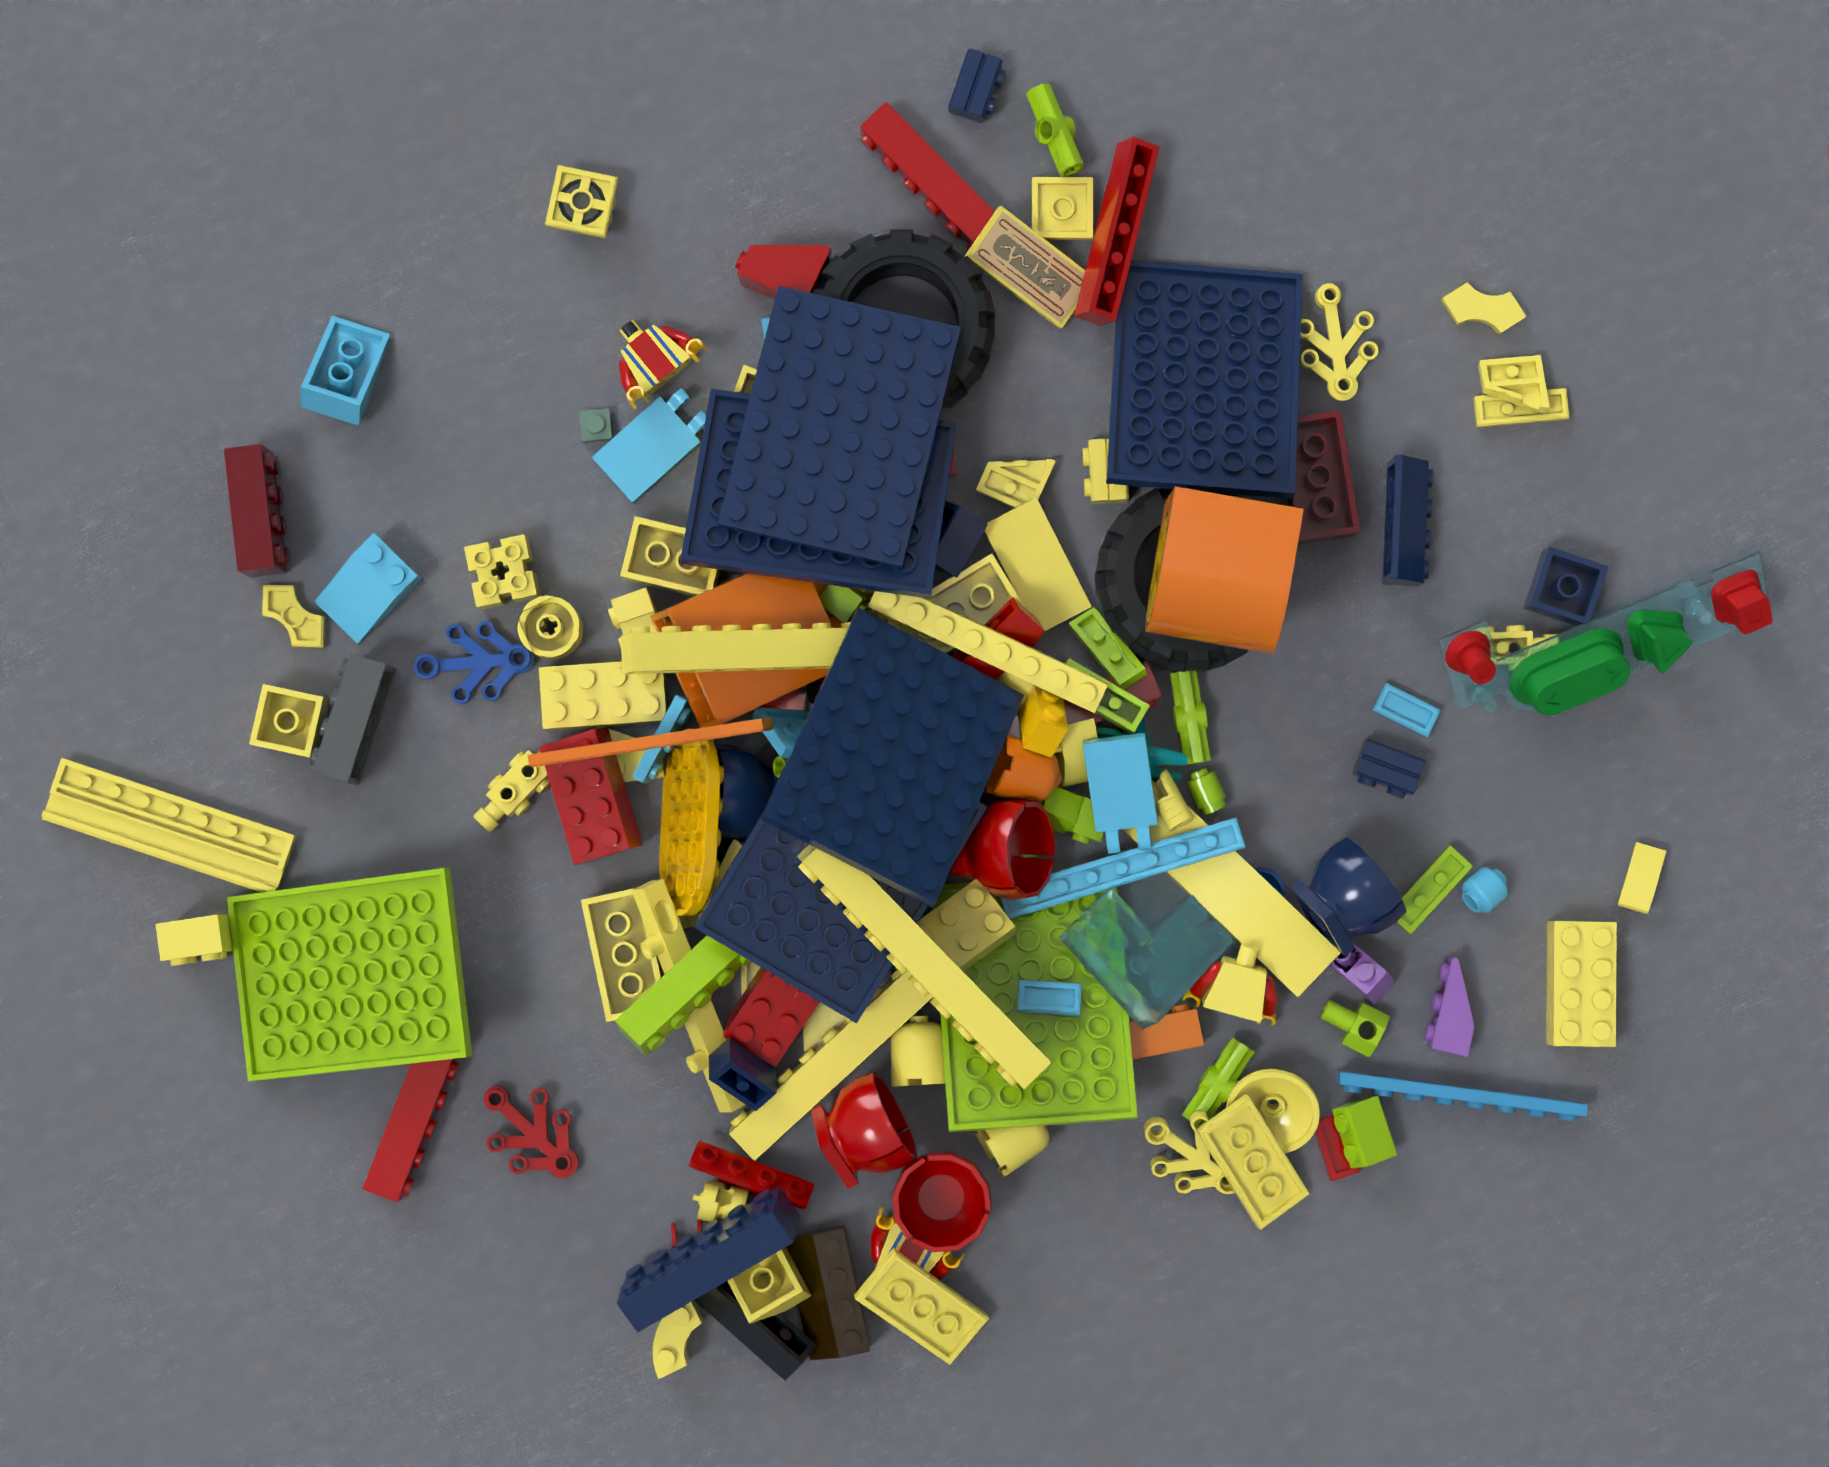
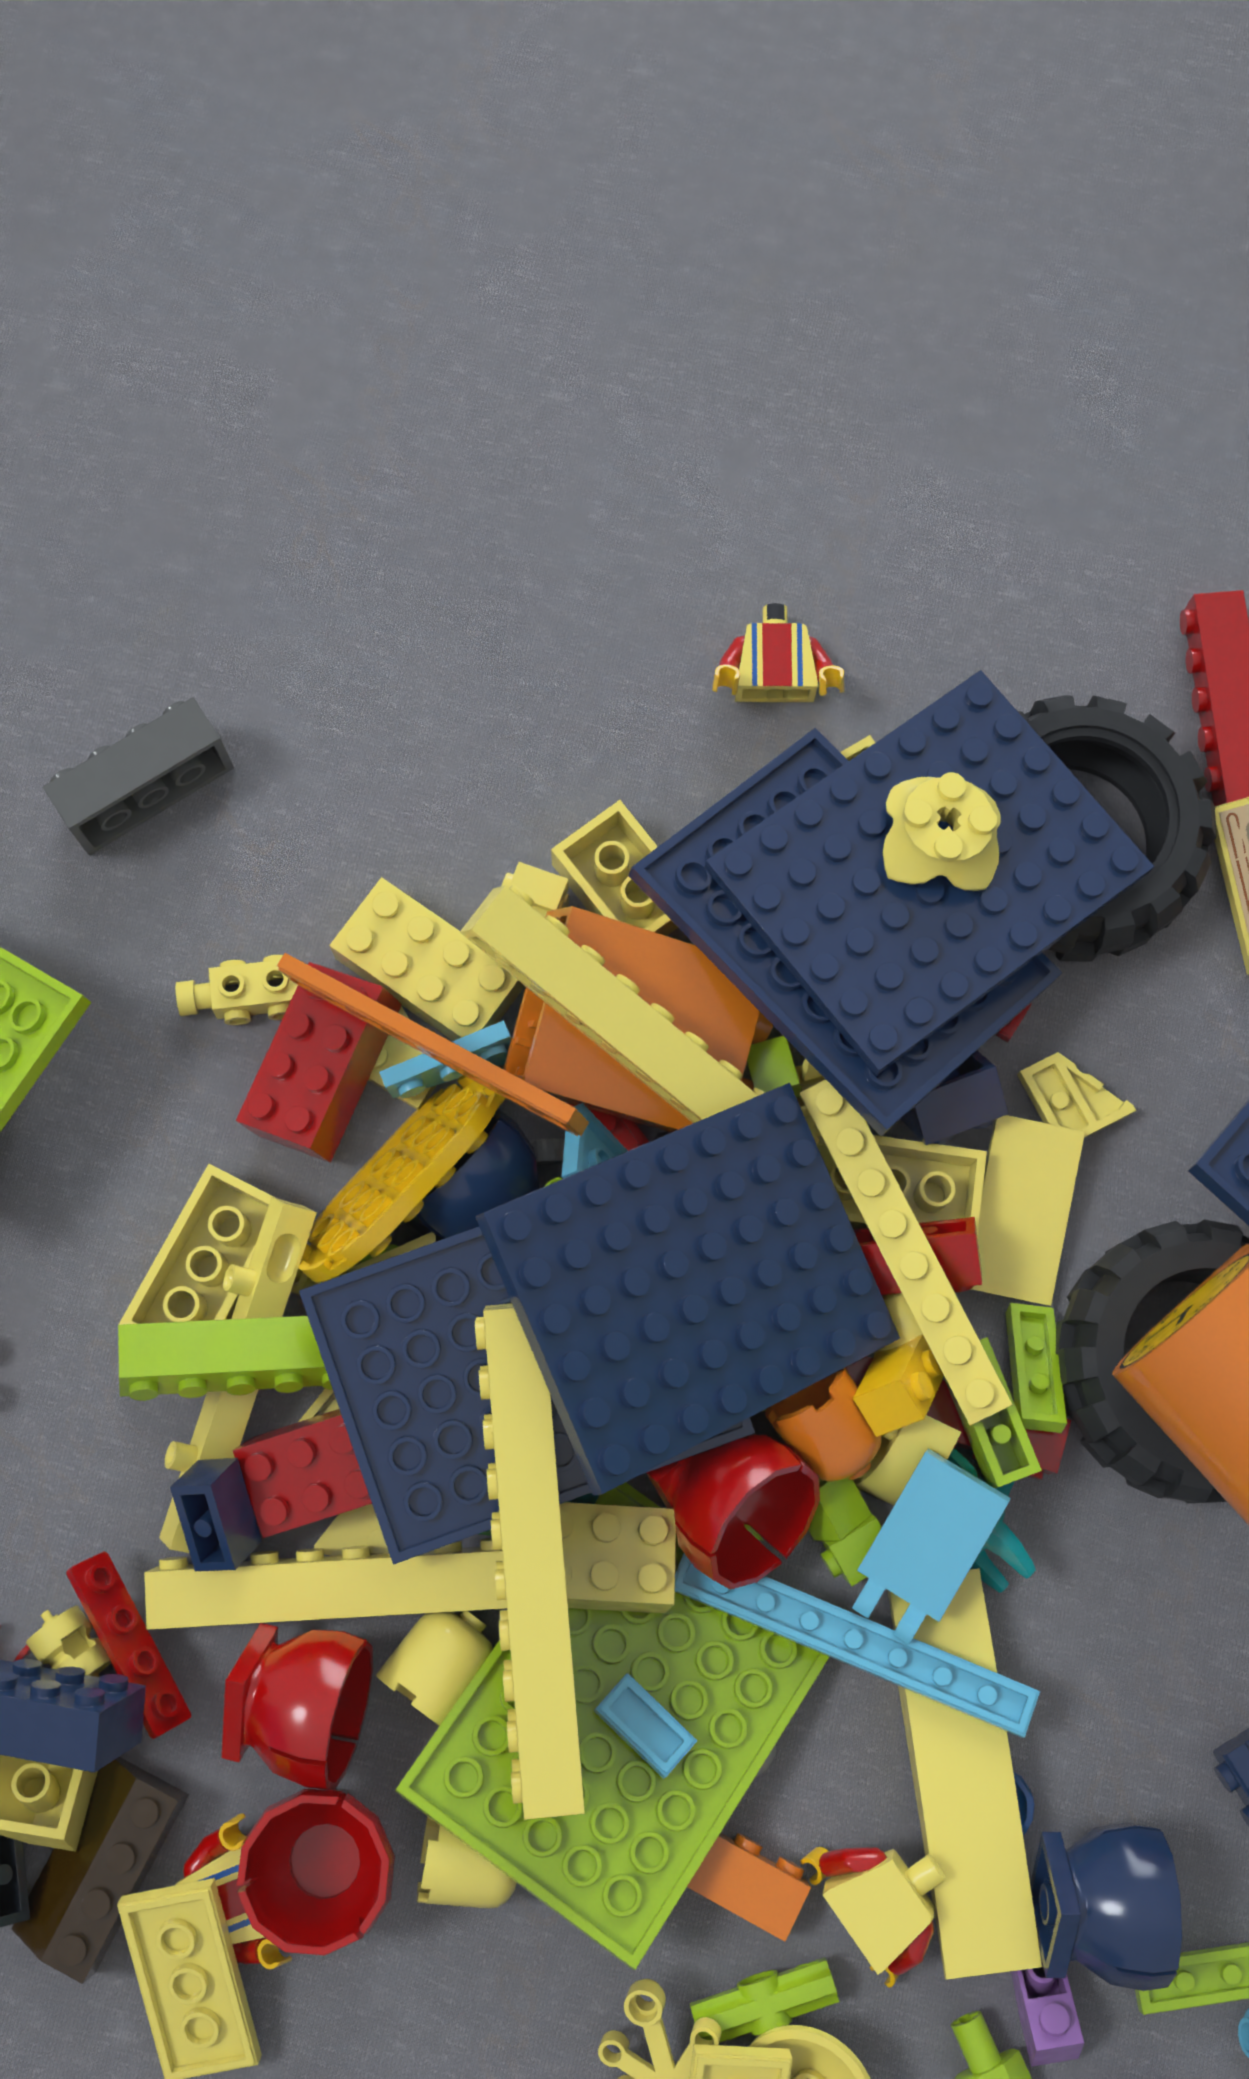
camera: 35 degrees right, 10 degrees down
(256, 510) = (228, 489): dark red brick -> none
(283, 604) = (176, 648): light yellow tile -> none
(289, 720) = (68, 719): light yellow brick -> none
(344, 370) = (440, 429): medium azure slope -> none
(367, 588) = (277, 660): medium azure slope -> none
(480, 661) = (326, 829): blue plant -> none
(518, 582) = (437, 775): light yellow brick -> none
(534, 622) = (416, 831): light yellow brick -> none
(582, 202) = (828, 449): light yellow piece -> none
(596, 425) = (657, 685): sand green plate -> none
(650, 446) = (695, 749): medium azure tile -> none
(782, 265) = (982, 645): red slope -> none
(826, 427) = (922, 850): none -> light yellow brick
(1095, 486) = (1168, 1179): light yellow brick -> none
(1143, 966) = (786, 1782): clear light blue piece -> none
(1172, 806) = (973, 1614): light yellow hinge -> none
(1190, 716) = (1071, 1524): lime piece -> none
(1206, 790) = (1023, 1629): lime brick -> none

